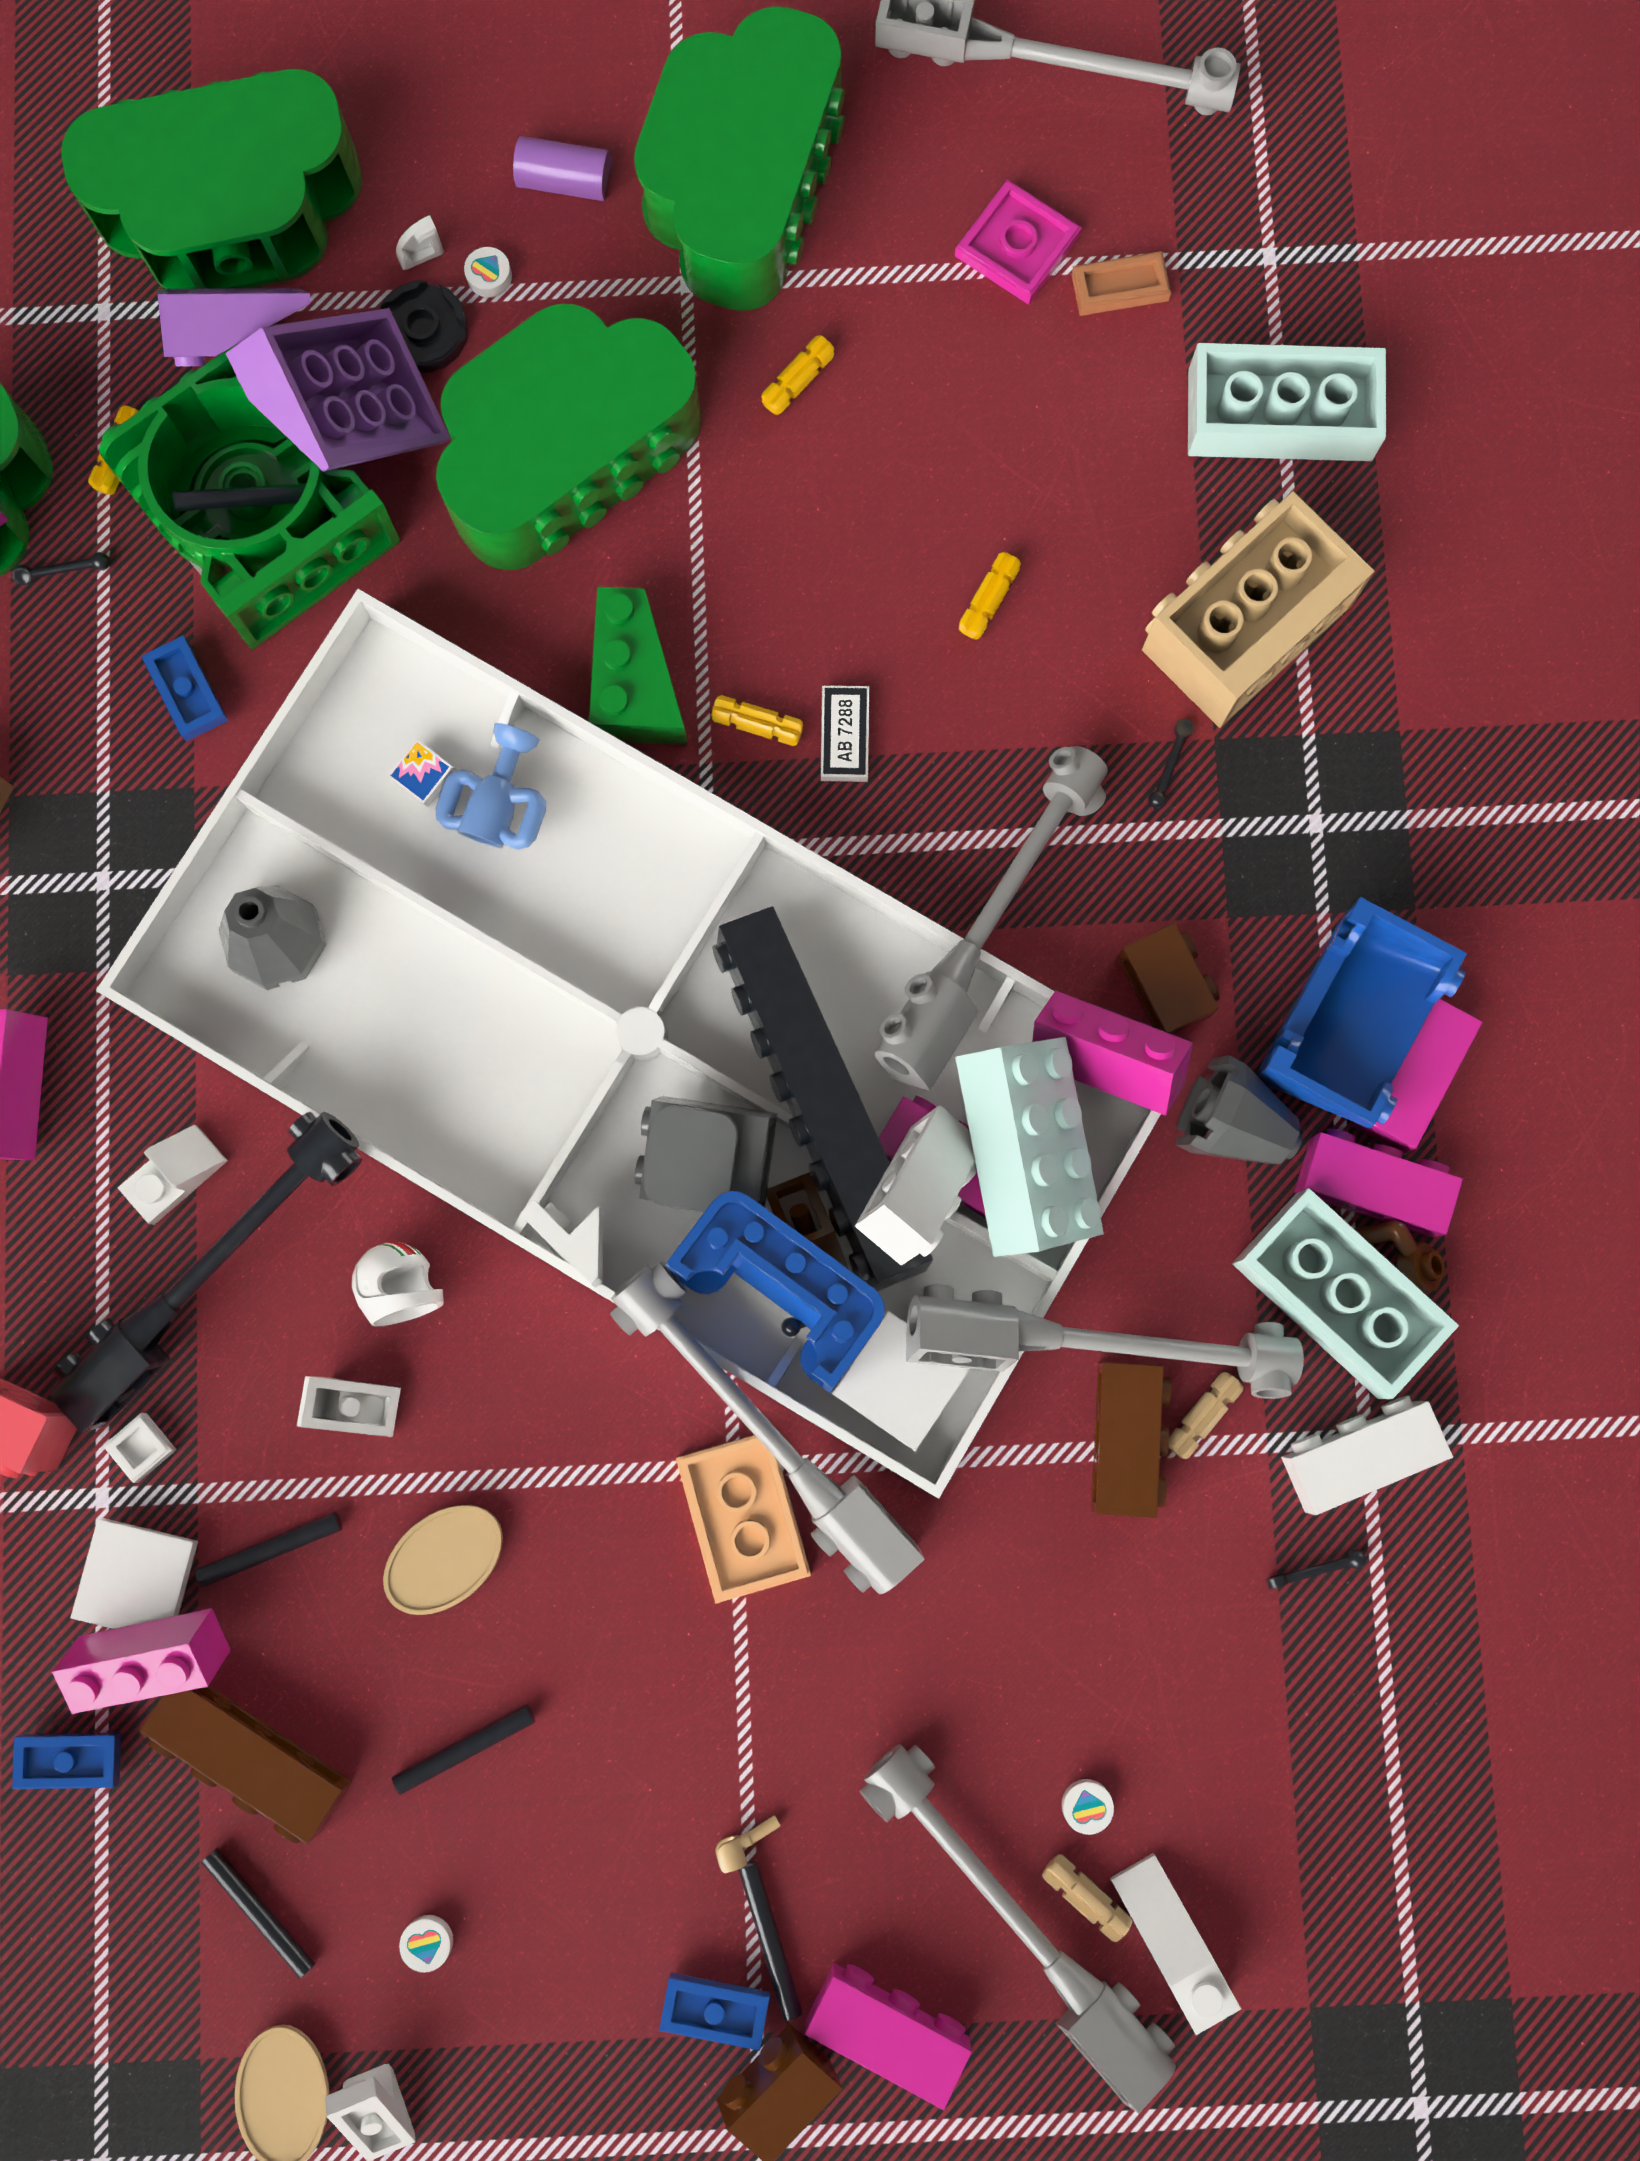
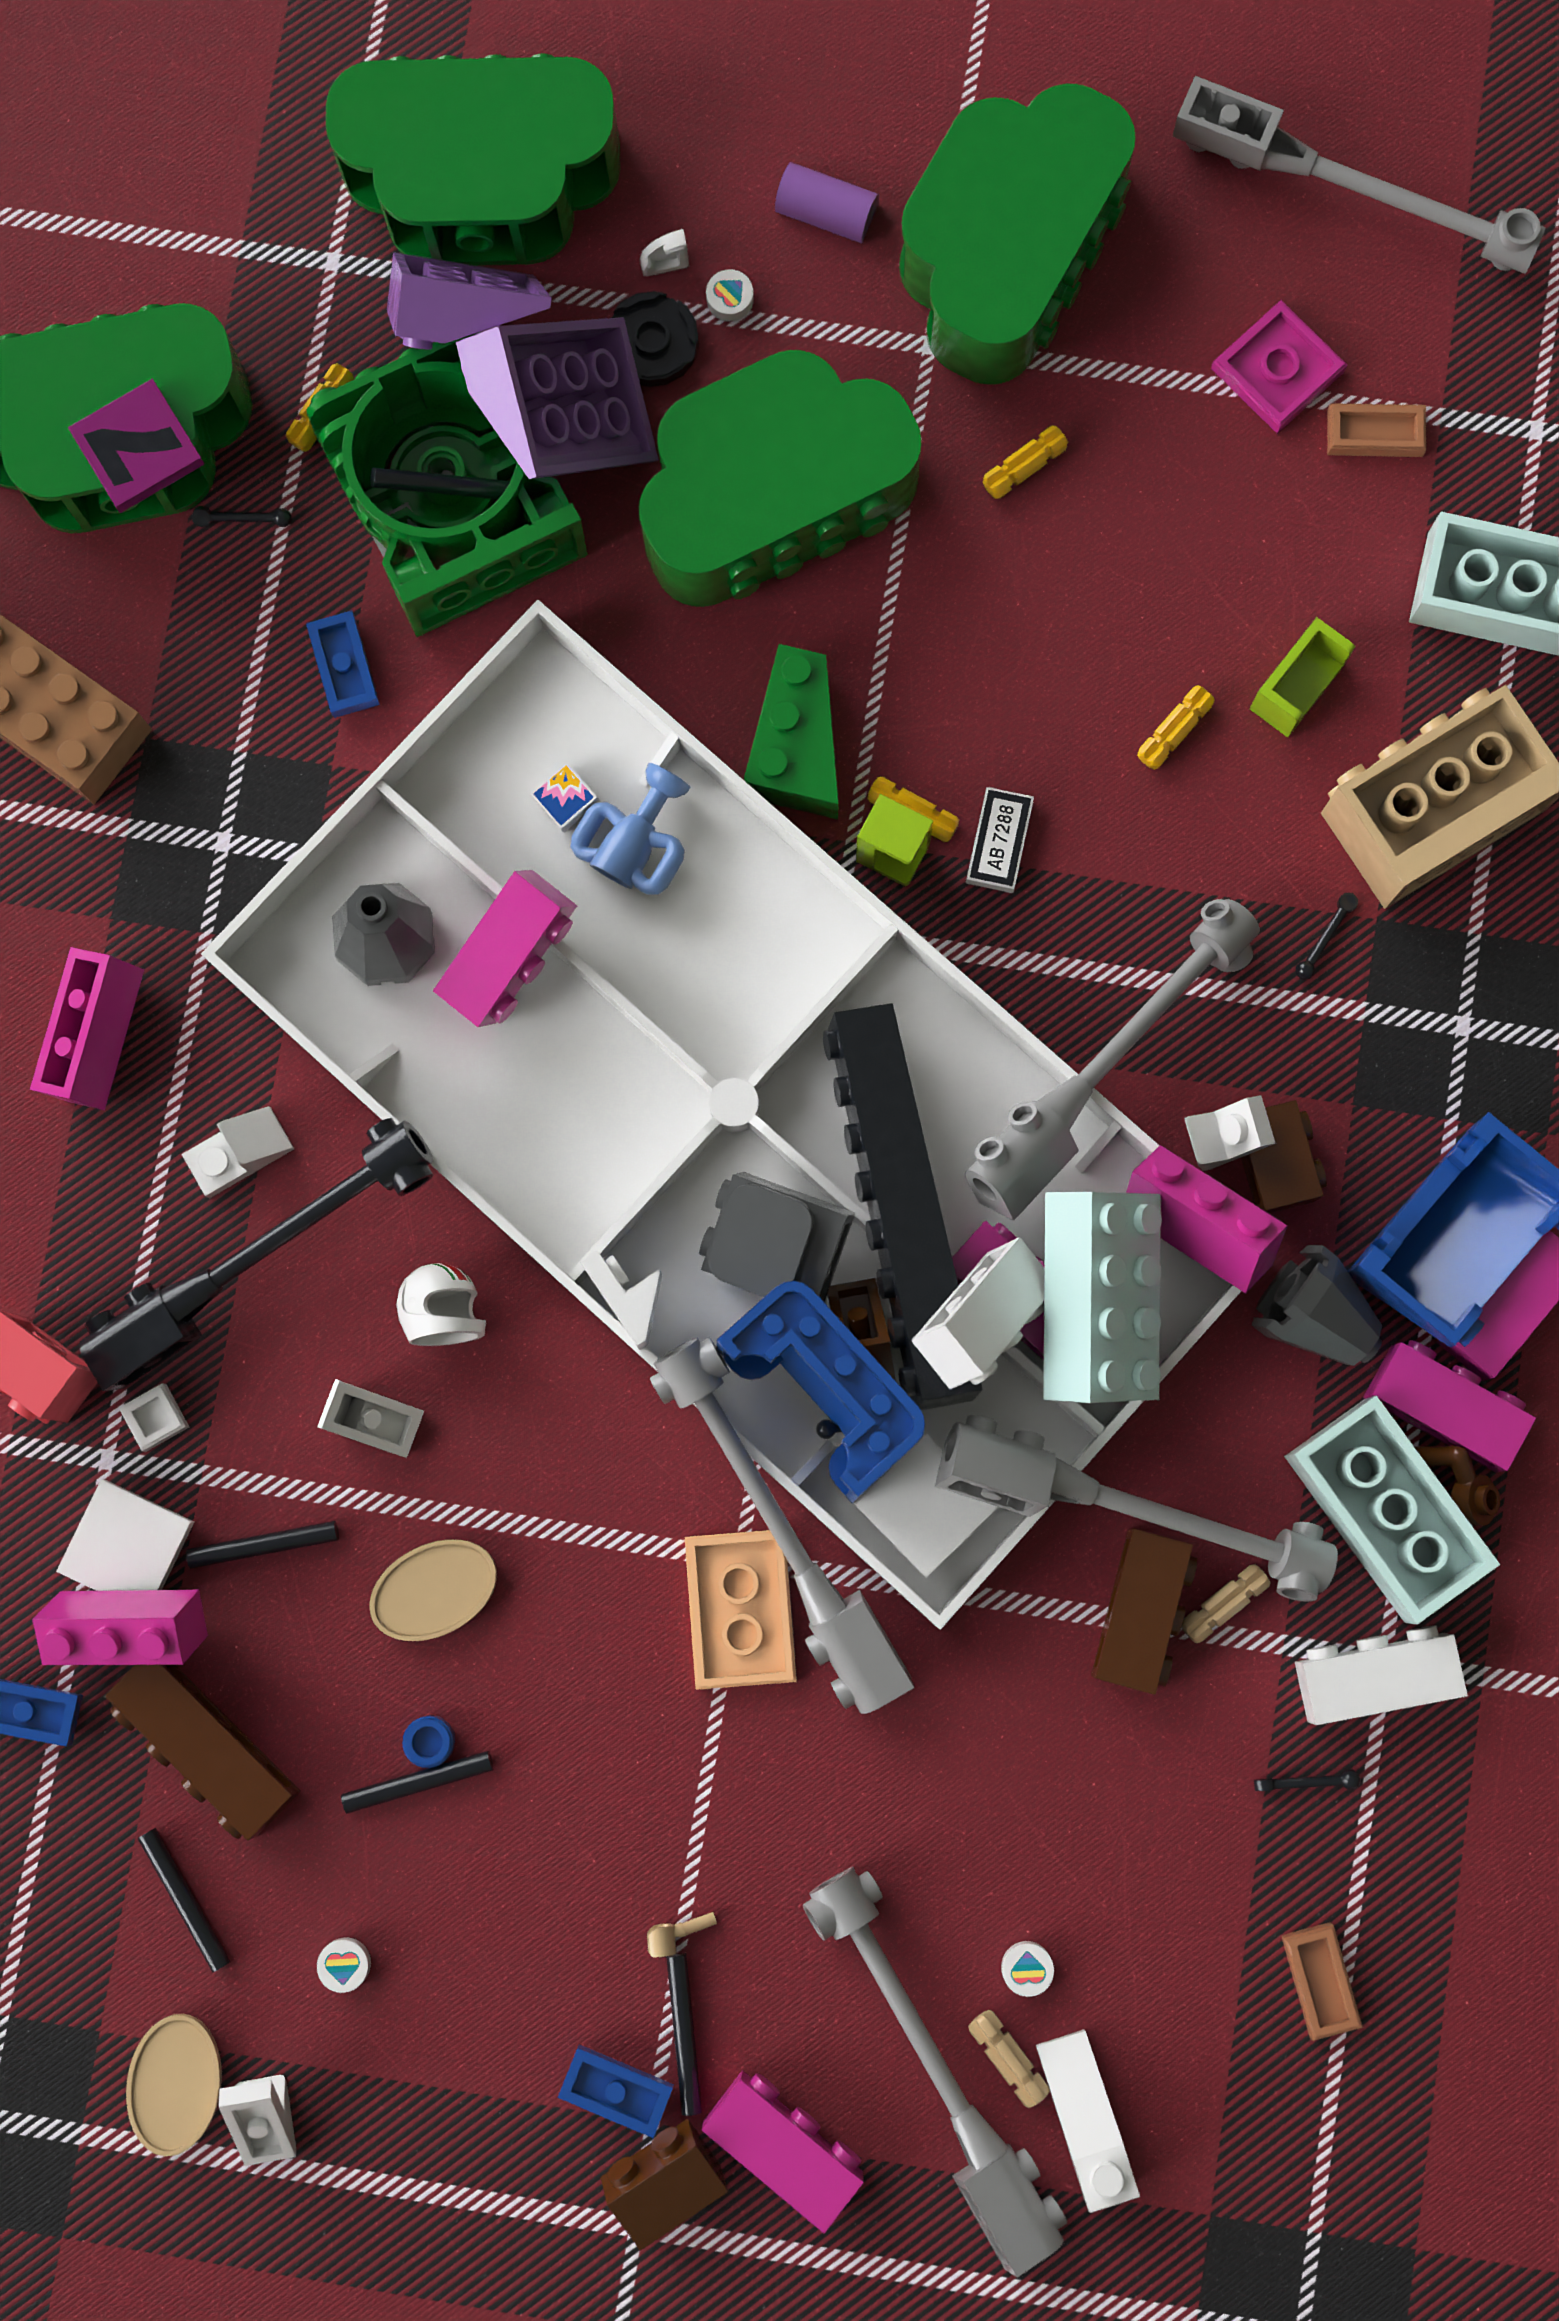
camera: 15 degrees right, 0 degrees up
(391, 927) = (506, 949): none -> dark pink brick
(467, 1707) = (428, 1741): none -> blue tile
(744, 751) = (893, 840): none -> lime panel
(1098, 524) = (1302, 677): none -> lime panel
(1119, 965) = (1229, 1132): none -> white slope
(1369, 1759) = (1321, 1981): none -> nougat tile

